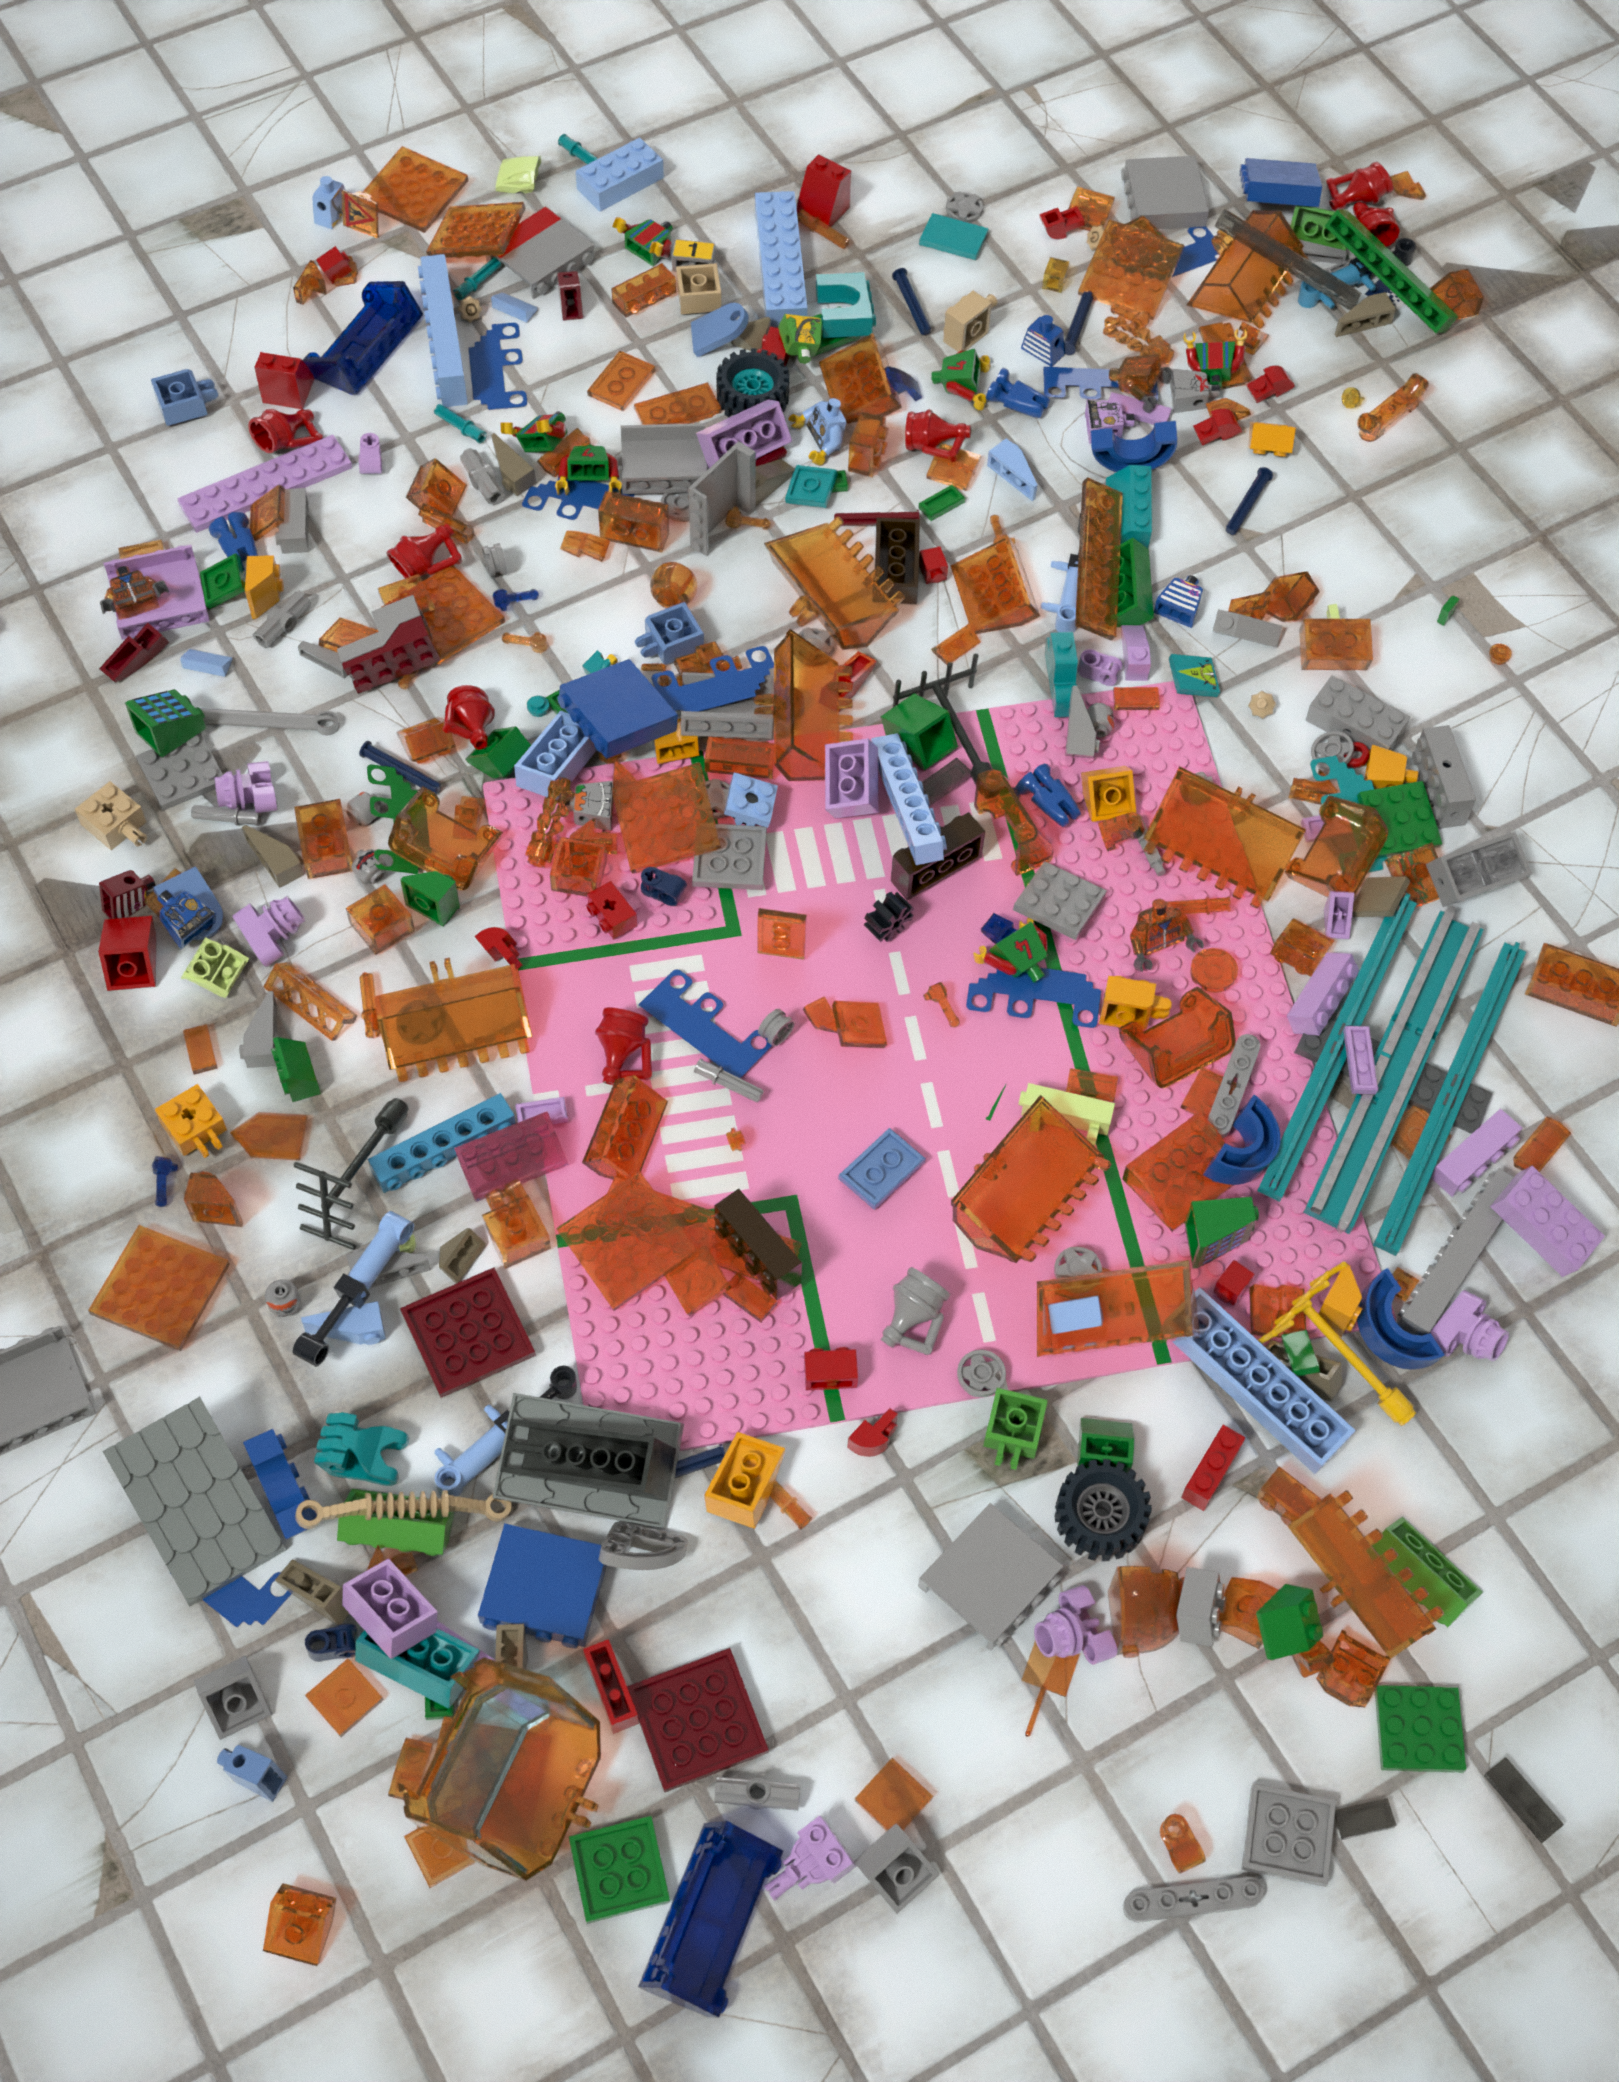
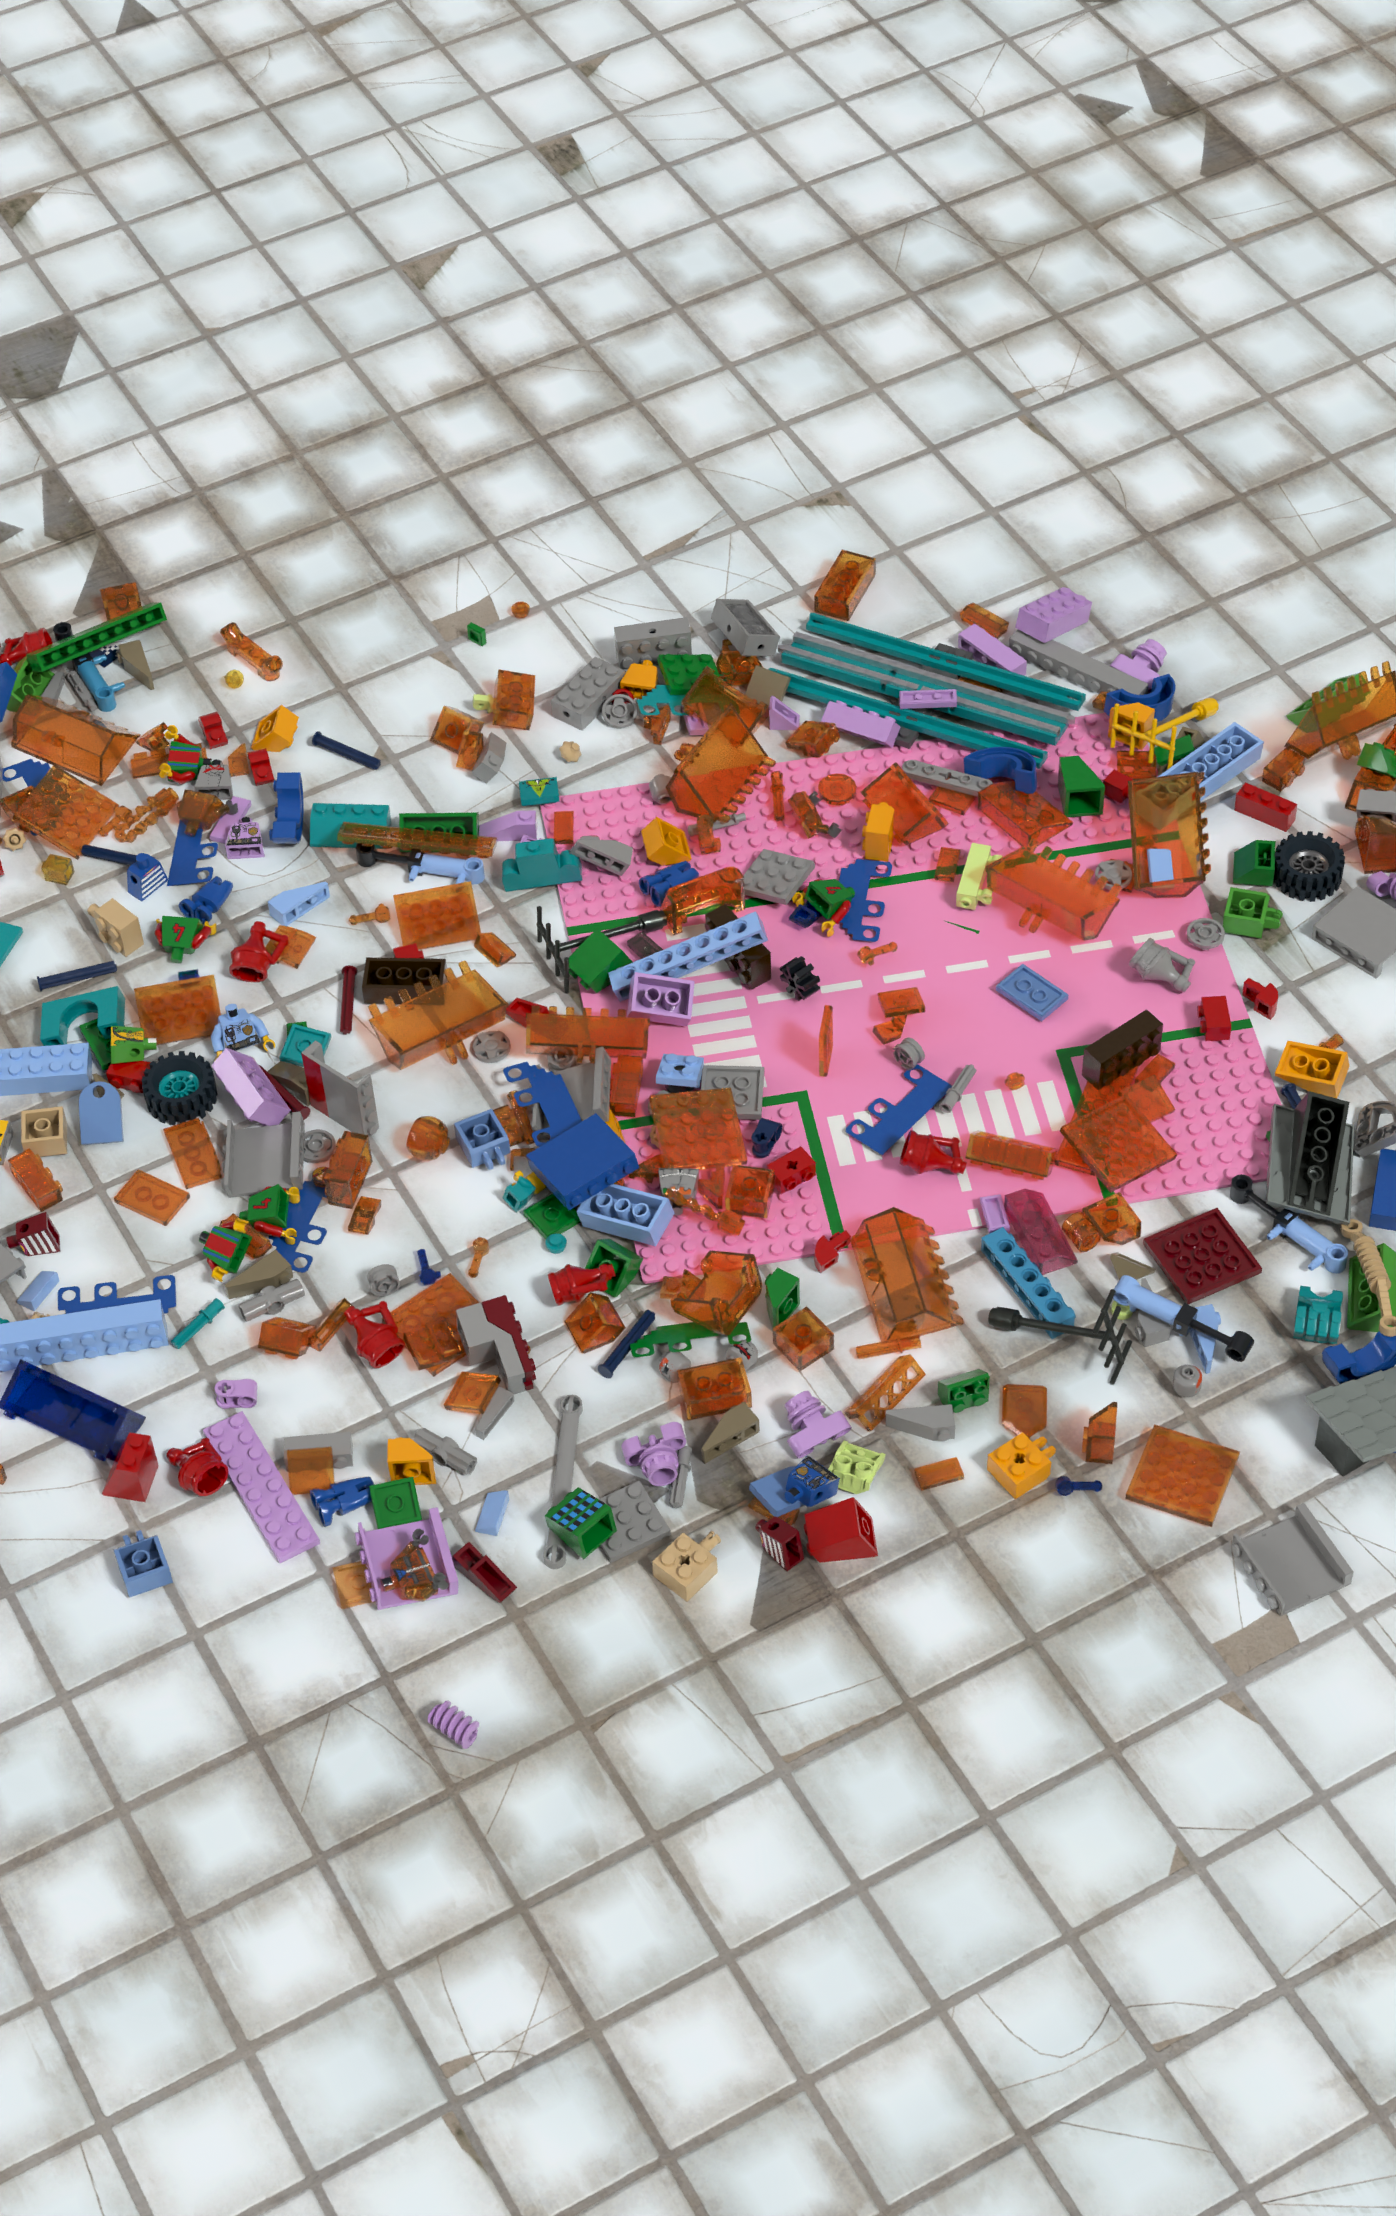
camera: 85 degrees left, 10 degrees down
(867, 444) = (266, 999): clear orange brick -> none
(941, 502) = (329, 956): green tile -> none
(1180, 601) = (457, 795): blue torso -> none
(1287, 259) = (83, 696): clear smoke tile -> none

